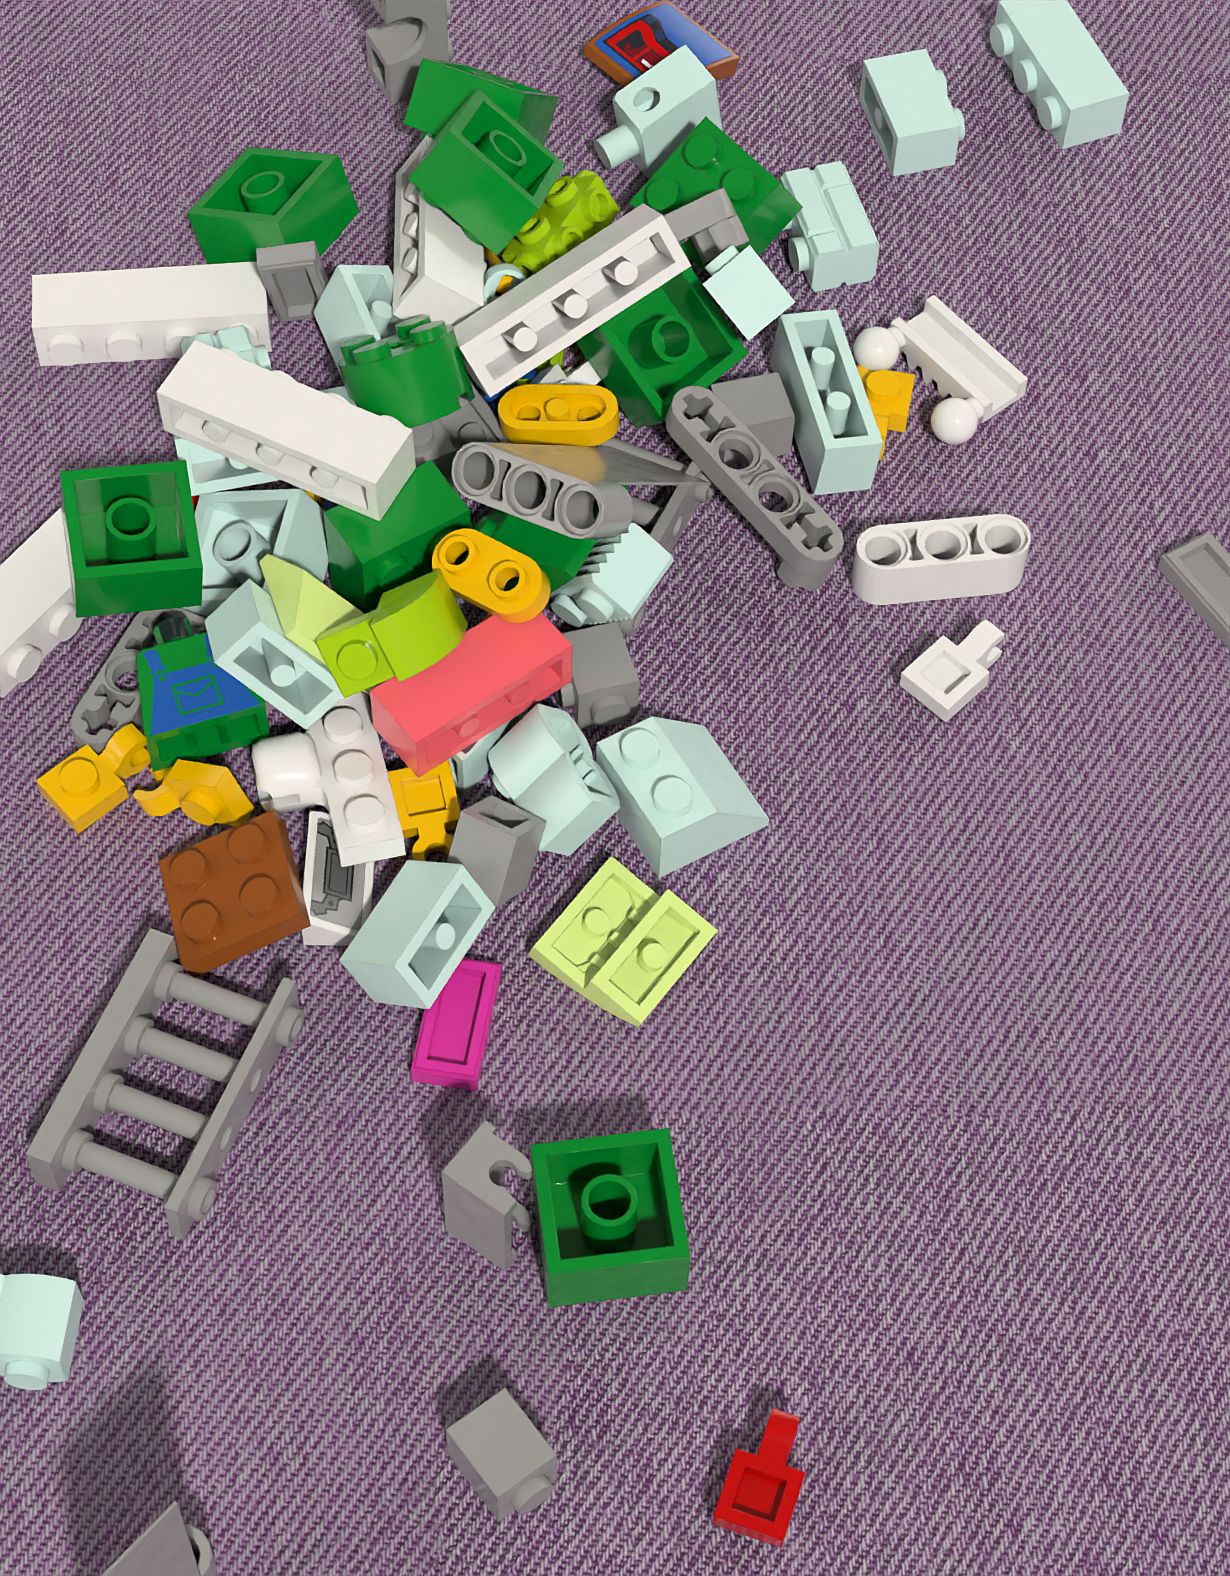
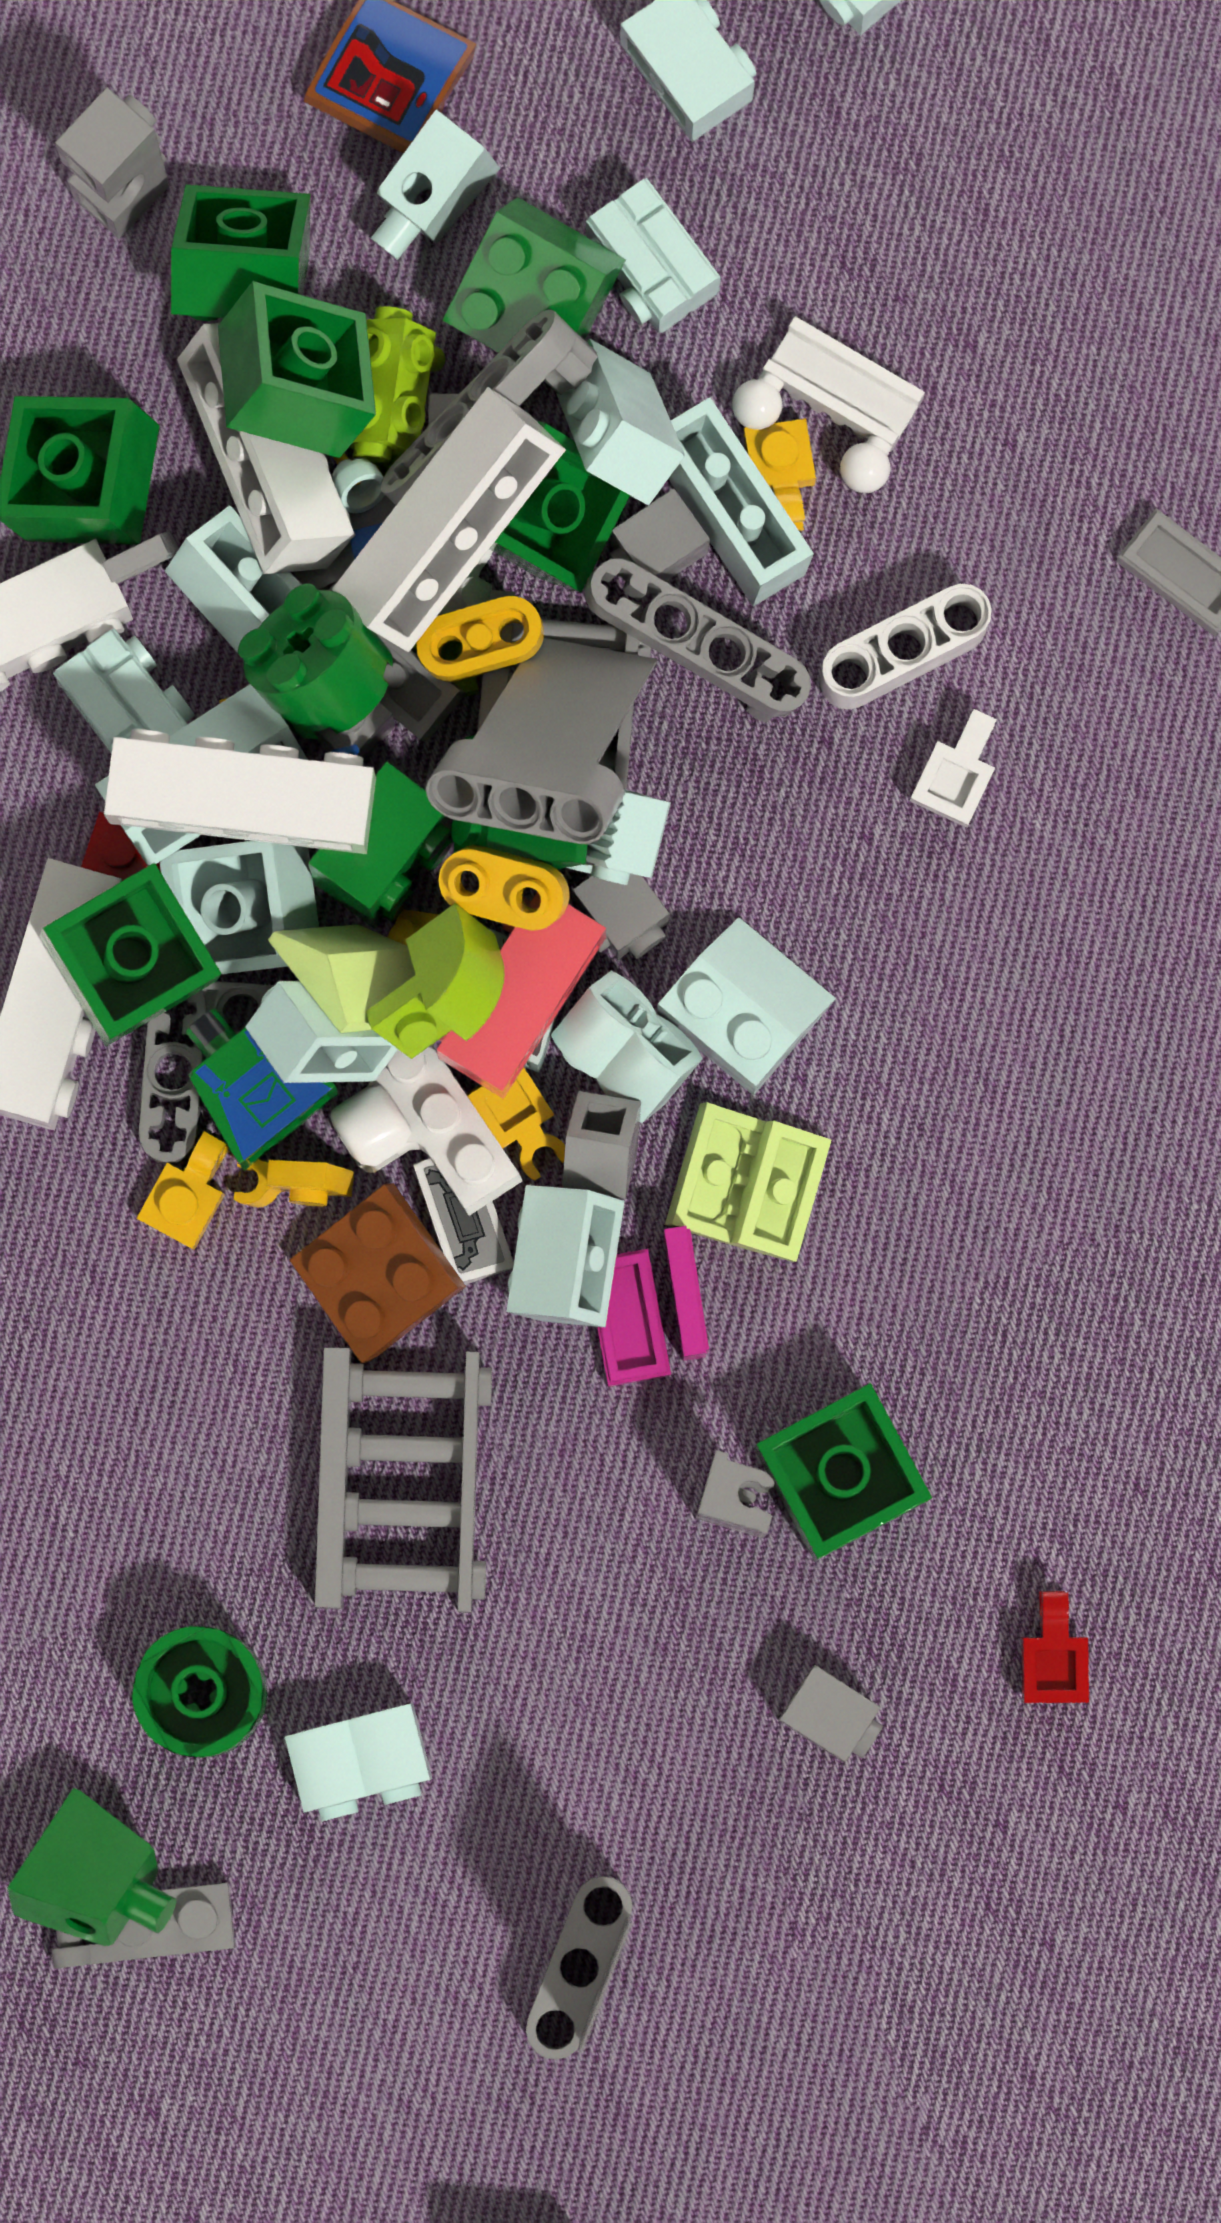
camera: 20 degrees left, 25 degrees up
(521, 1011) = (686, 1293): none -> dark pink tile

